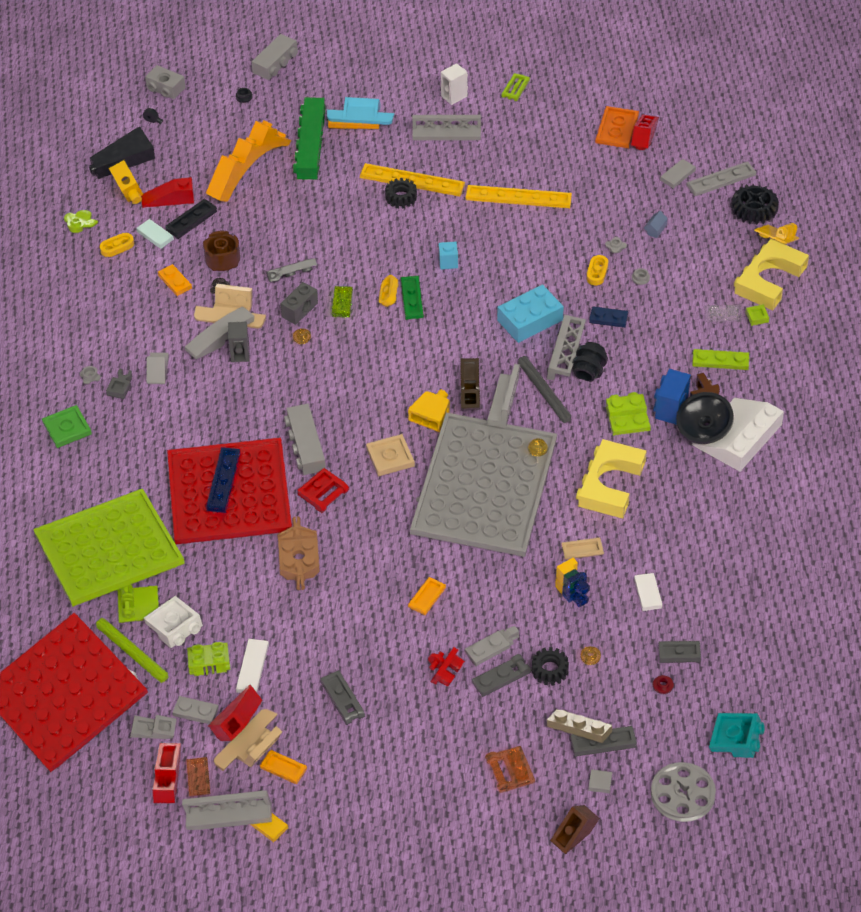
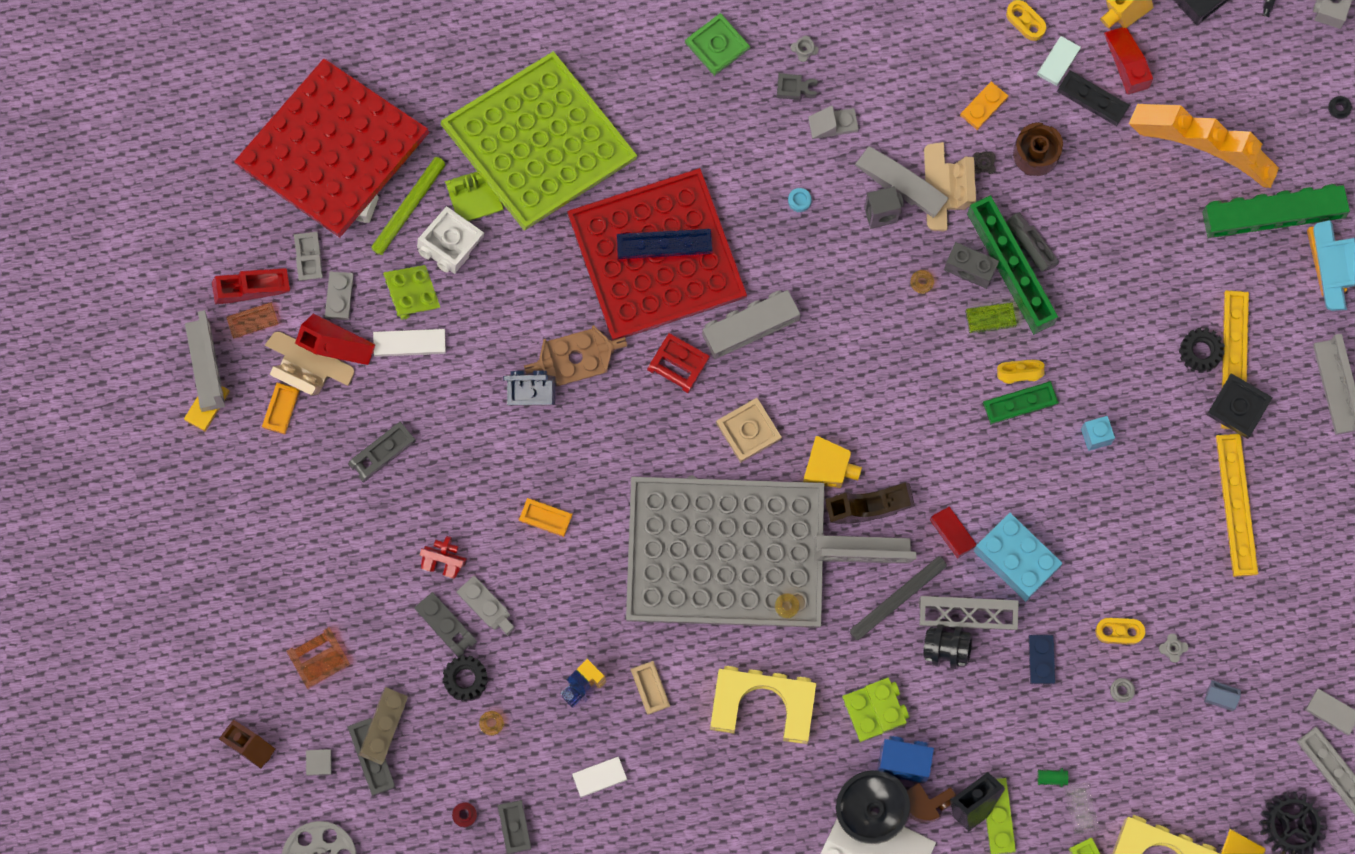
camera: 75 degrees right, 25 degrees up
(212, 397) = (799, 200): none -> medium azure tile
(318, 275) = (1012, 265): none -> green brick
(319, 584) = (530, 389): none -> bracket
(449, 177) = (1239, 406): none -> black plate
(501, 350) = (953, 532): none -> red slope
(697, 325) = (1052, 777): none -> green pin
(709, 363) = (976, 801): none -> black slope

